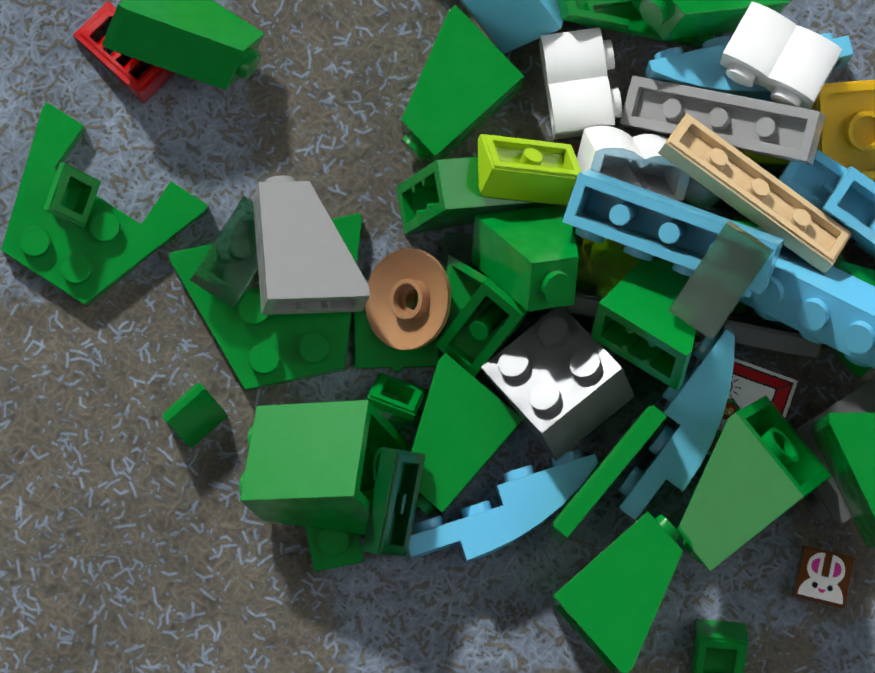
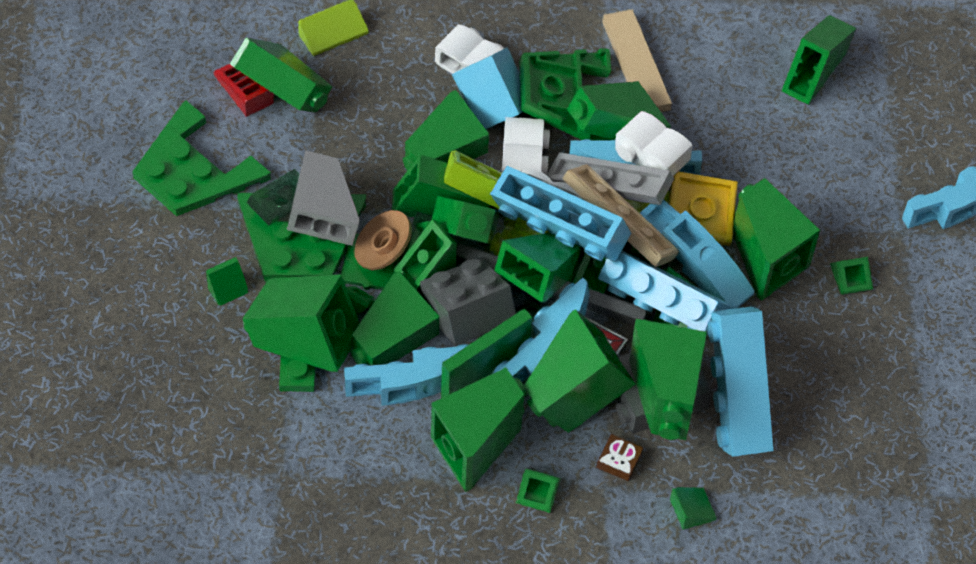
camera: 10 degrees right, 25 degrees down
(72, 195) = (186, 142): green slope -> none
(394, 502) = (341, 338): dark green tile -> none
(720, 280) = (582, 233): clear green tile -> none

